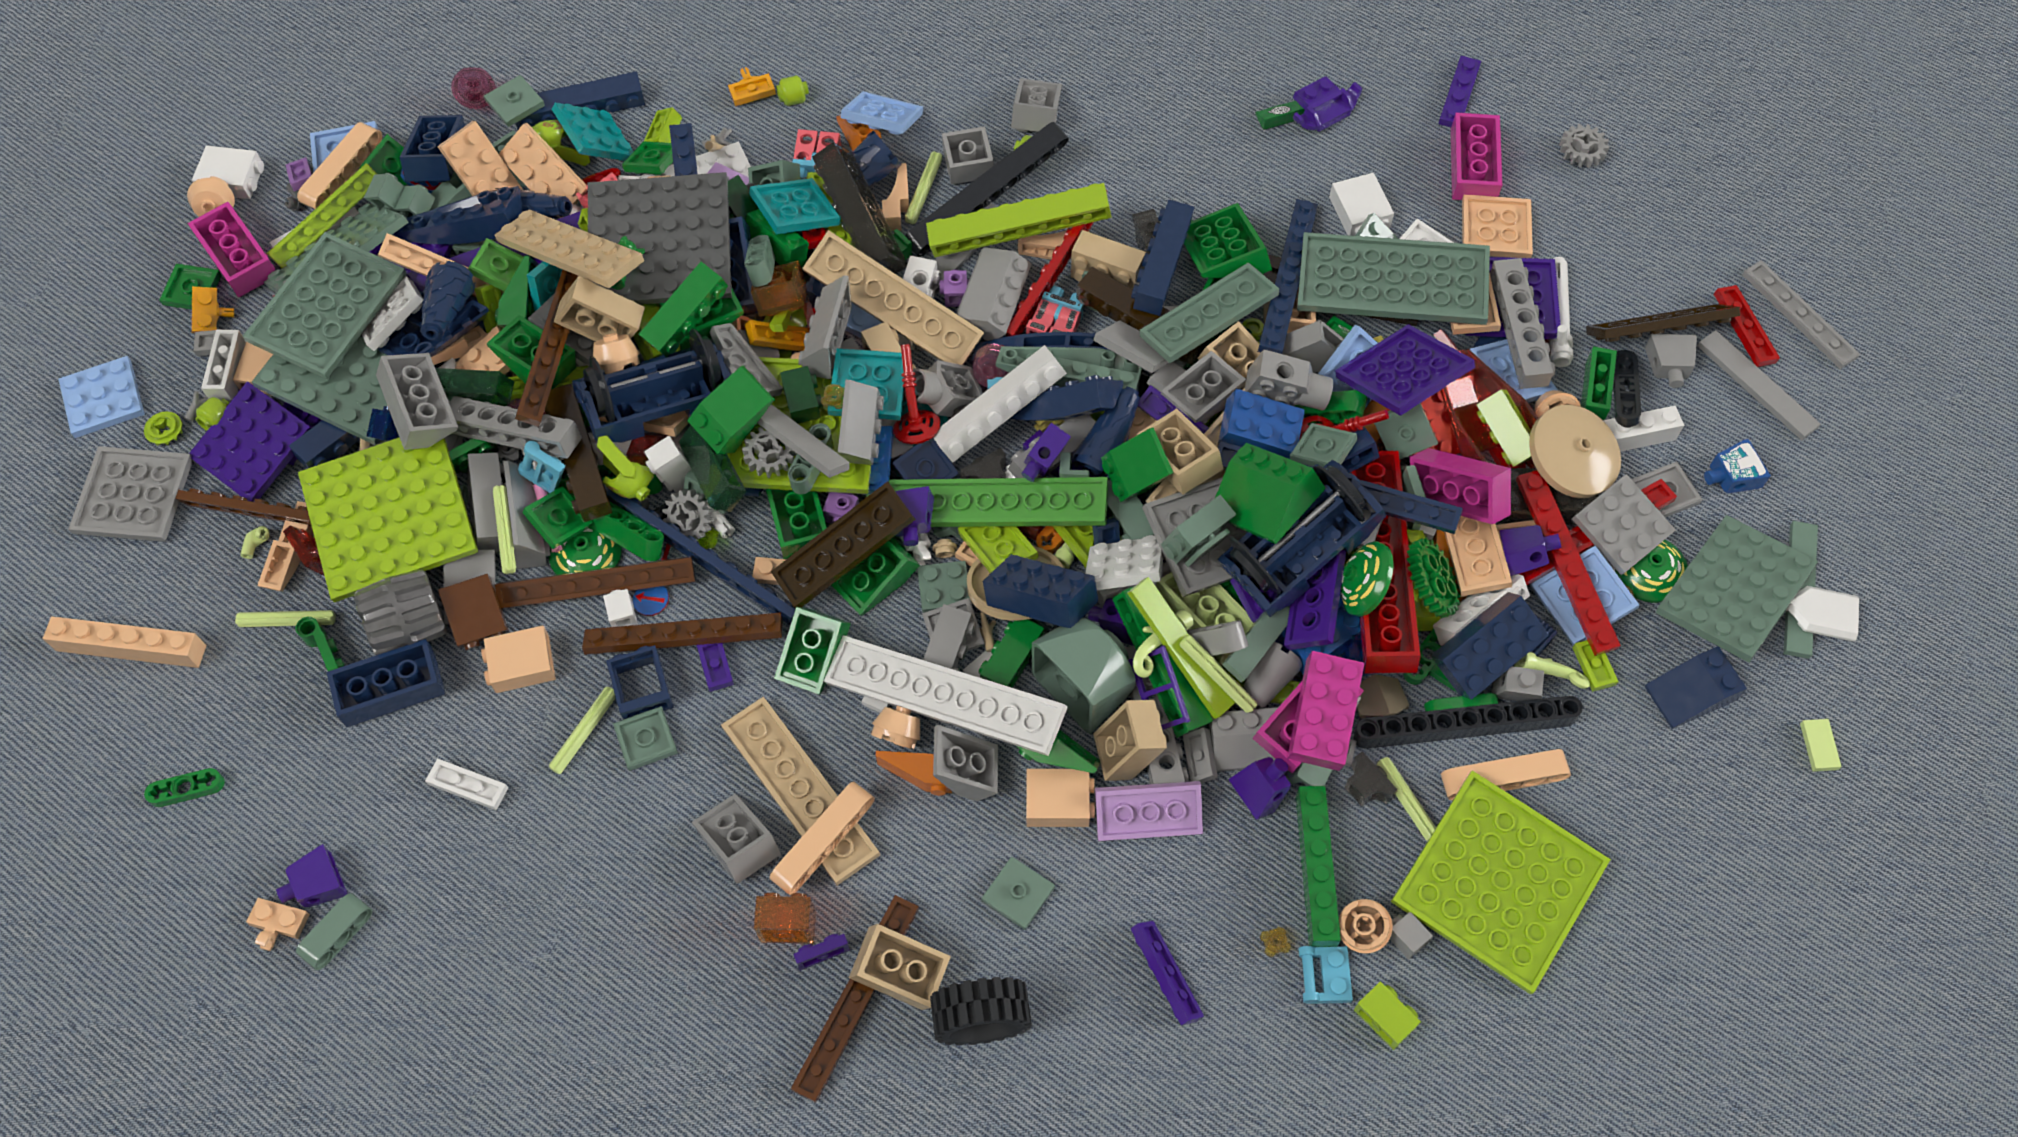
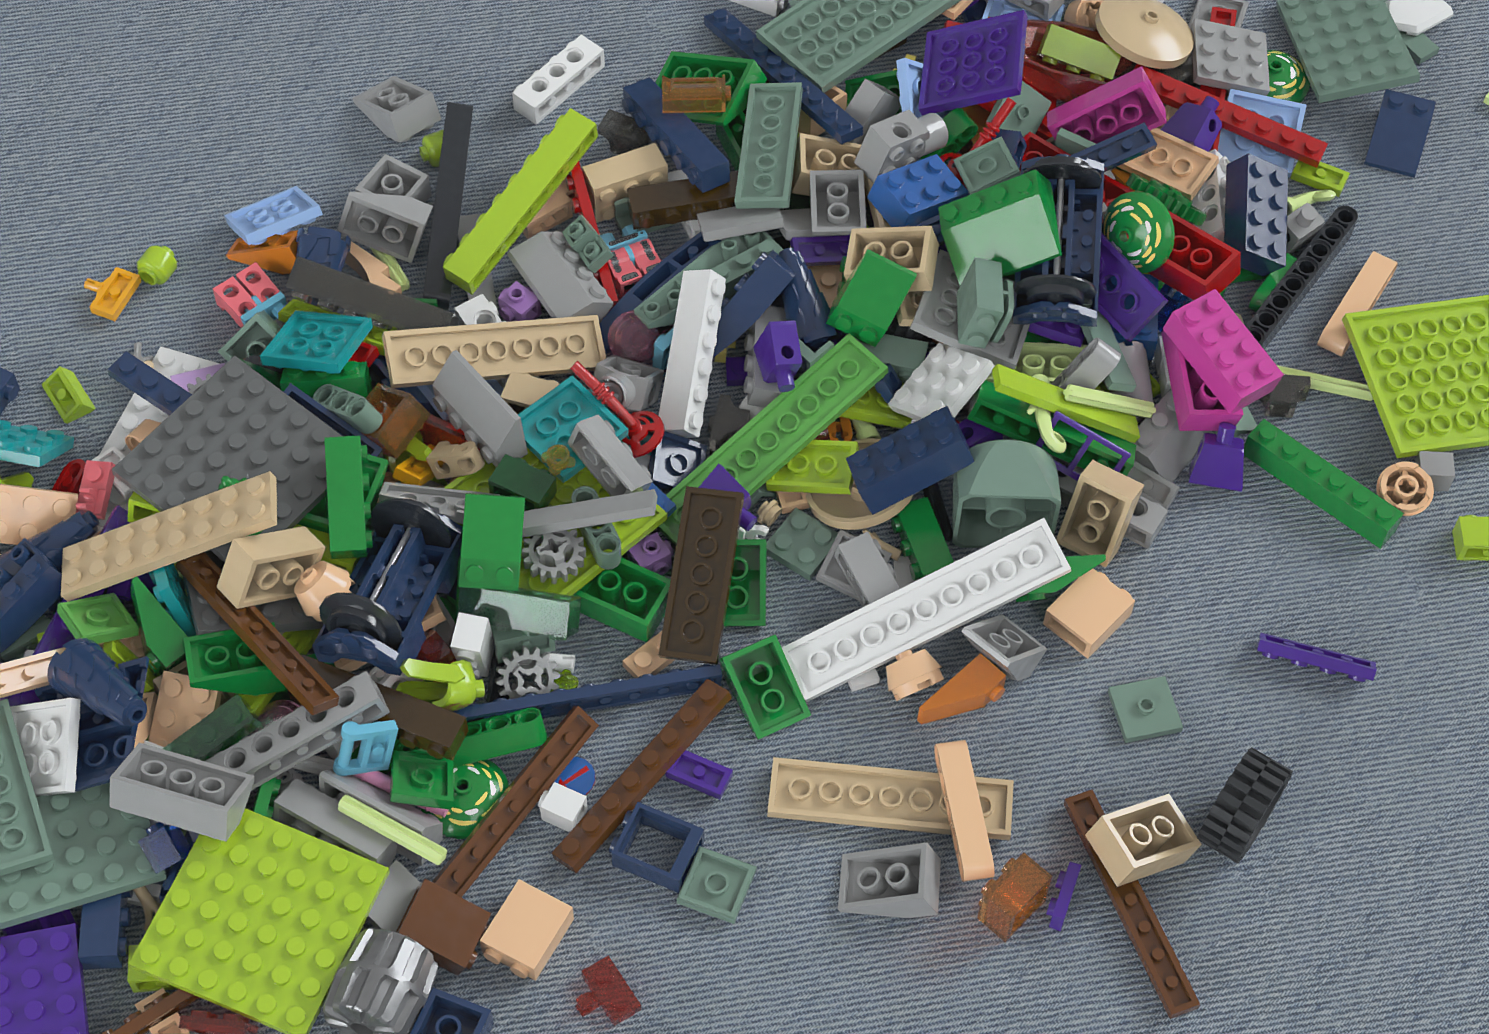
camera: 50 degrees left, 5 degrees down
(520, 739) = (608, 991): none -> clear red plate
(582, 730) = (654, 931): yellowish green axle -> none
(649, 158) = (98, 422): green plate -> none
(786, 345) = (458, 459): none -> tan leg
(933, 169) = (385, 222): none -> light grey slope
(1031, 281) = (587, 243): none -> sand green slope
(1149, 810) = (1166, 555): lavender plate -> none
(1154, 165) = (558, 79): none -> white brick
(1198, 239) = (695, 94): none -> clear orange window
(1275, 934) = (1359, 558): clear yellow plate -> none
(1334, 974) = (1417, 547): medium azure plate -> none

